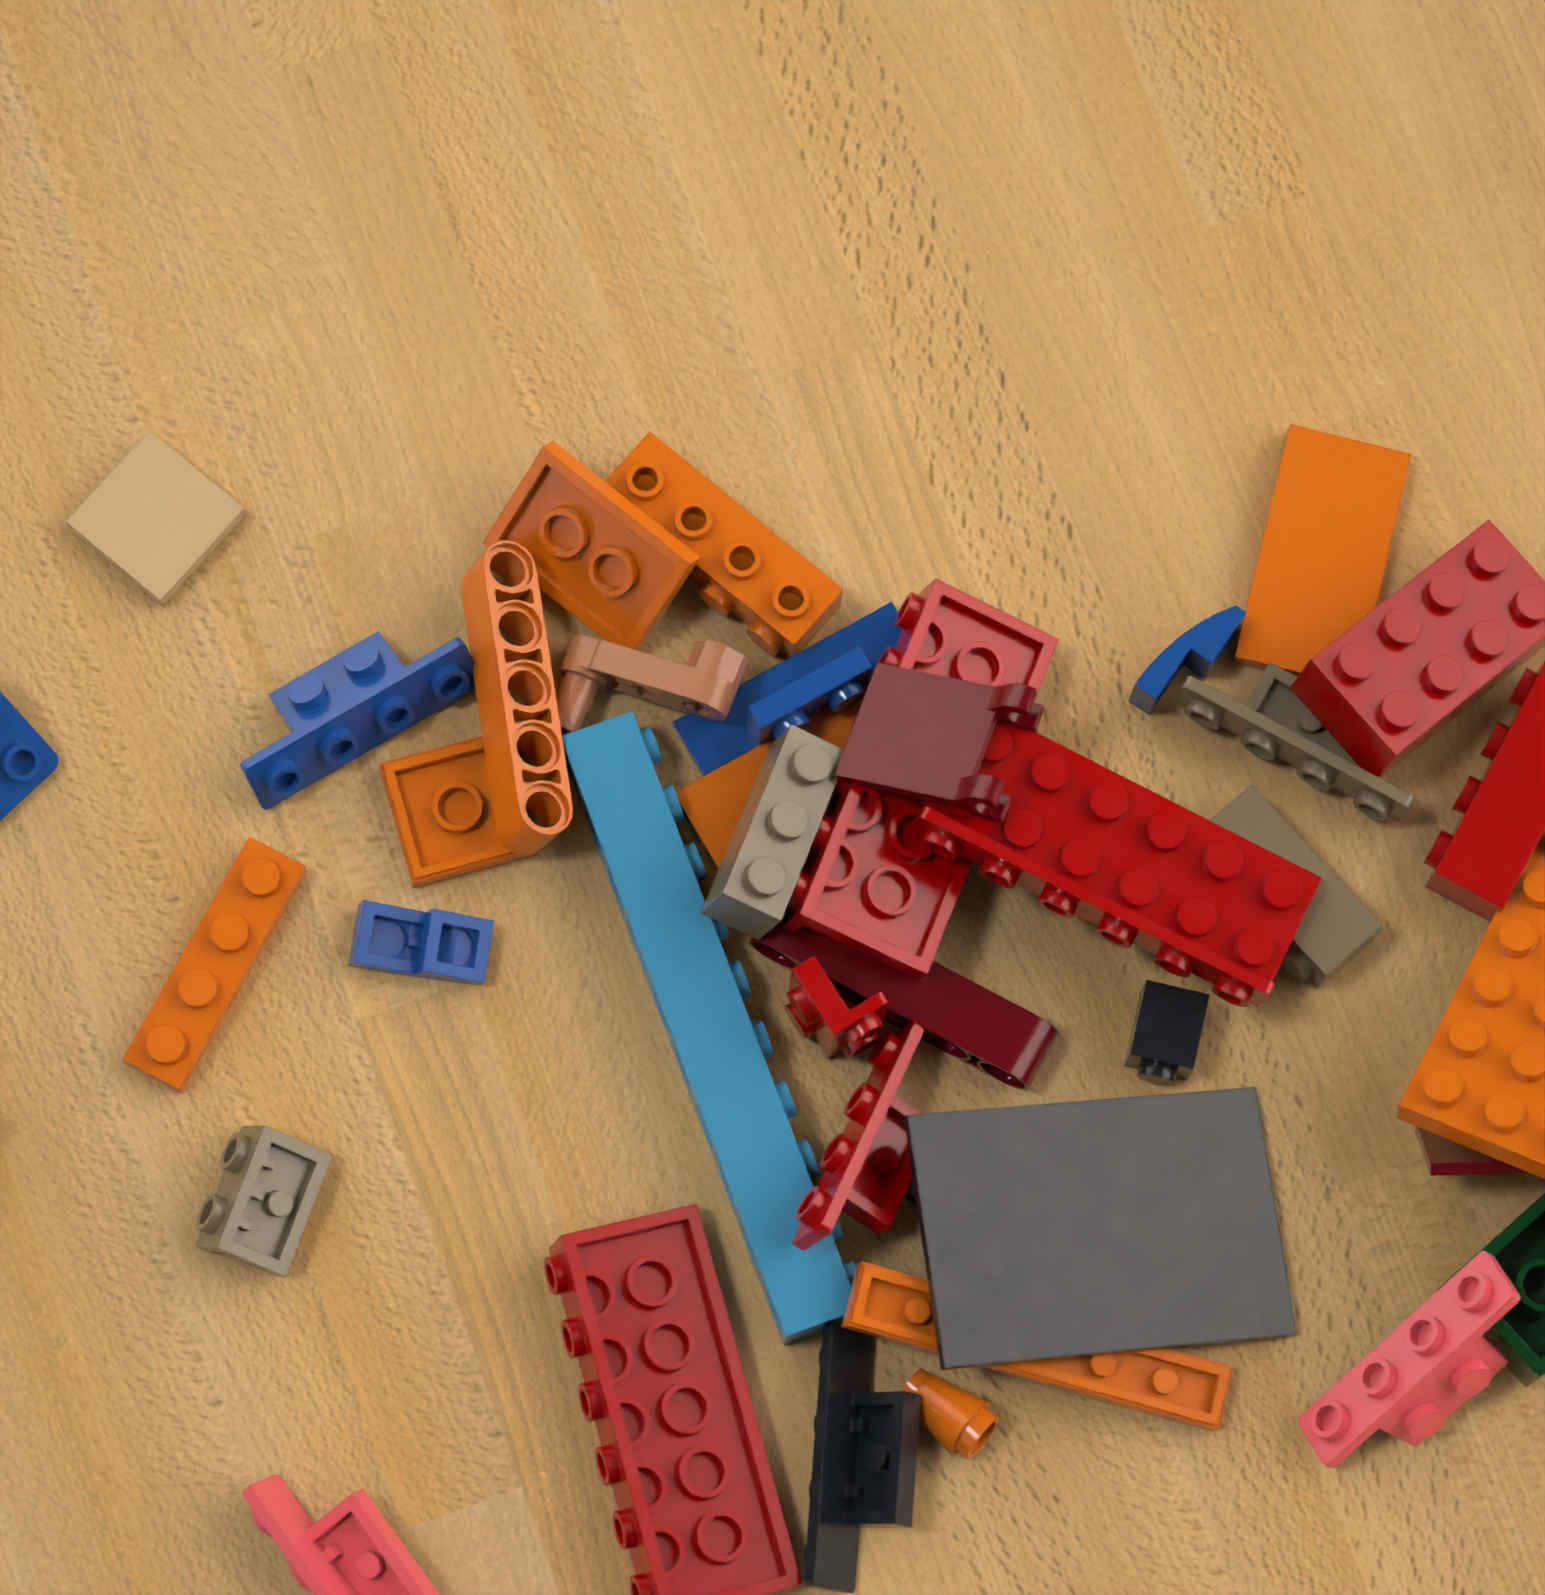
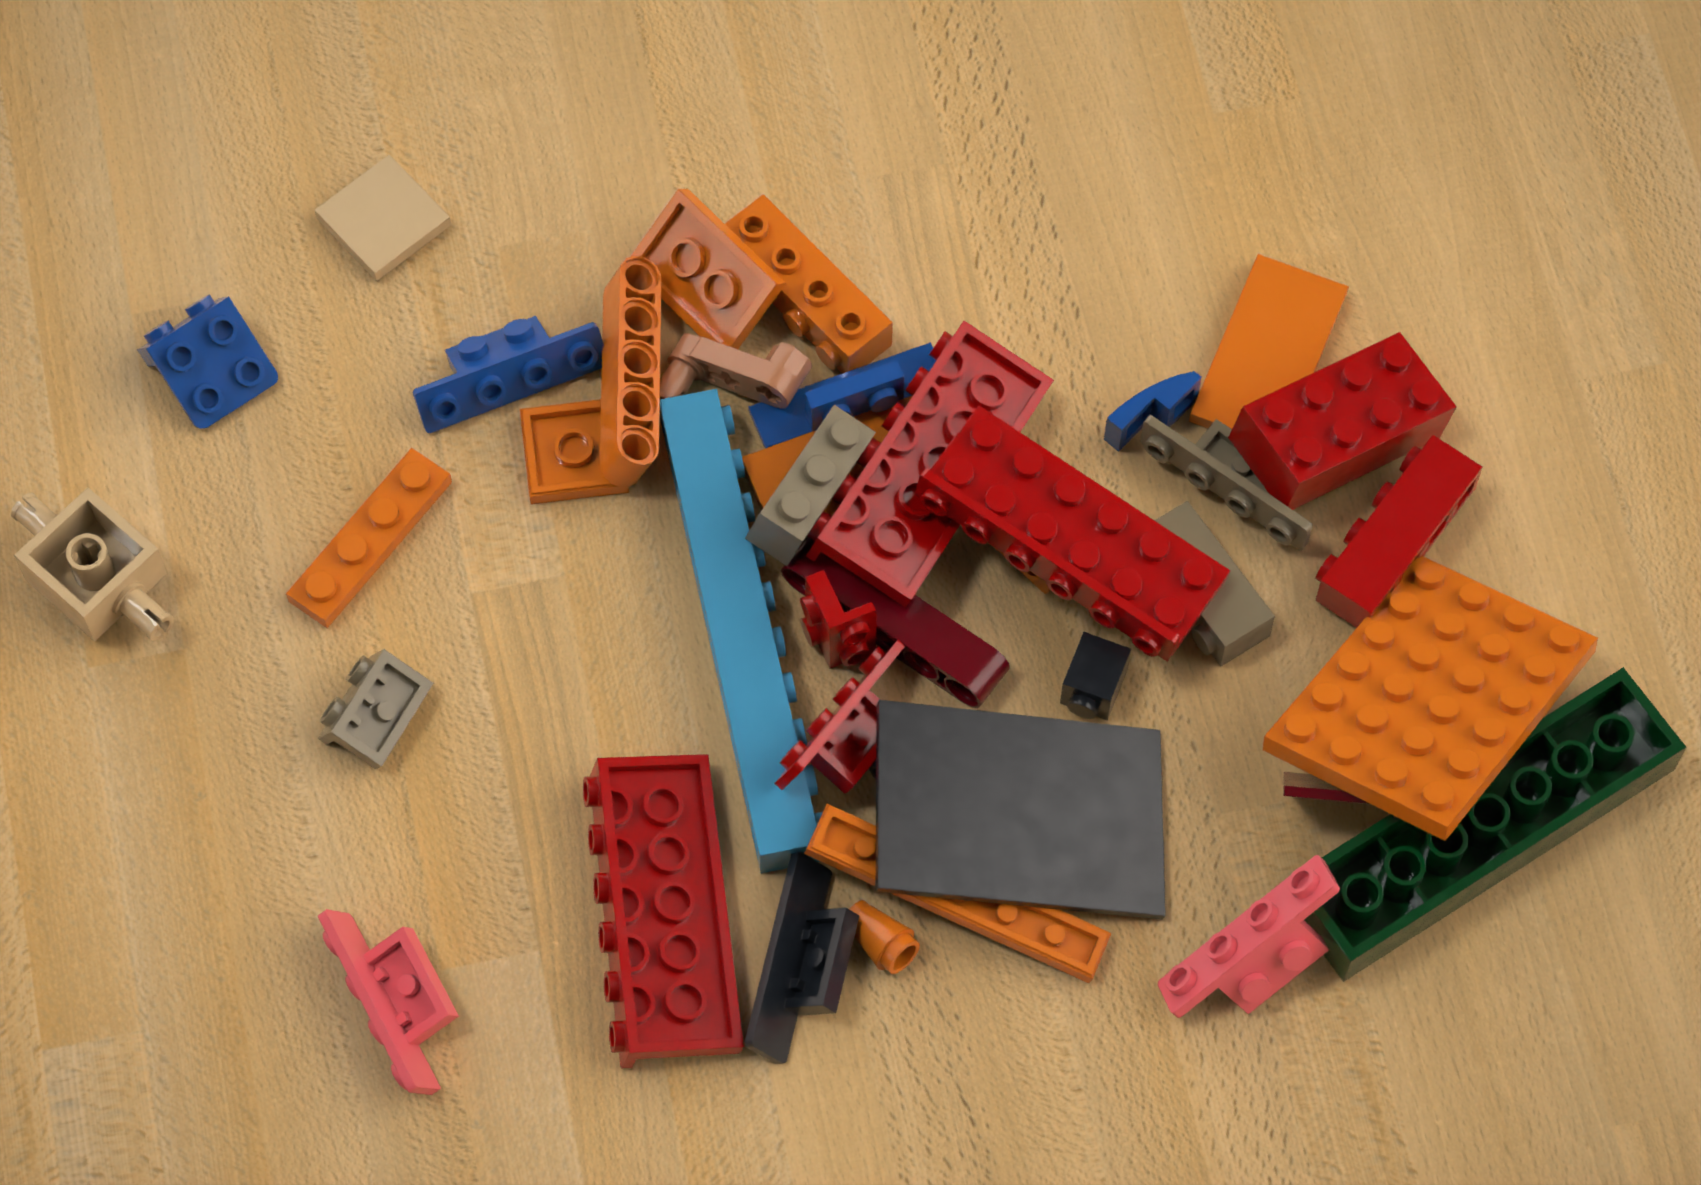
camera: 15 degrees right, 10 degrees down
(421, 943) = (529, 543): blue slope -> none
(930, 735) = (939, 424): dark red flag -> none

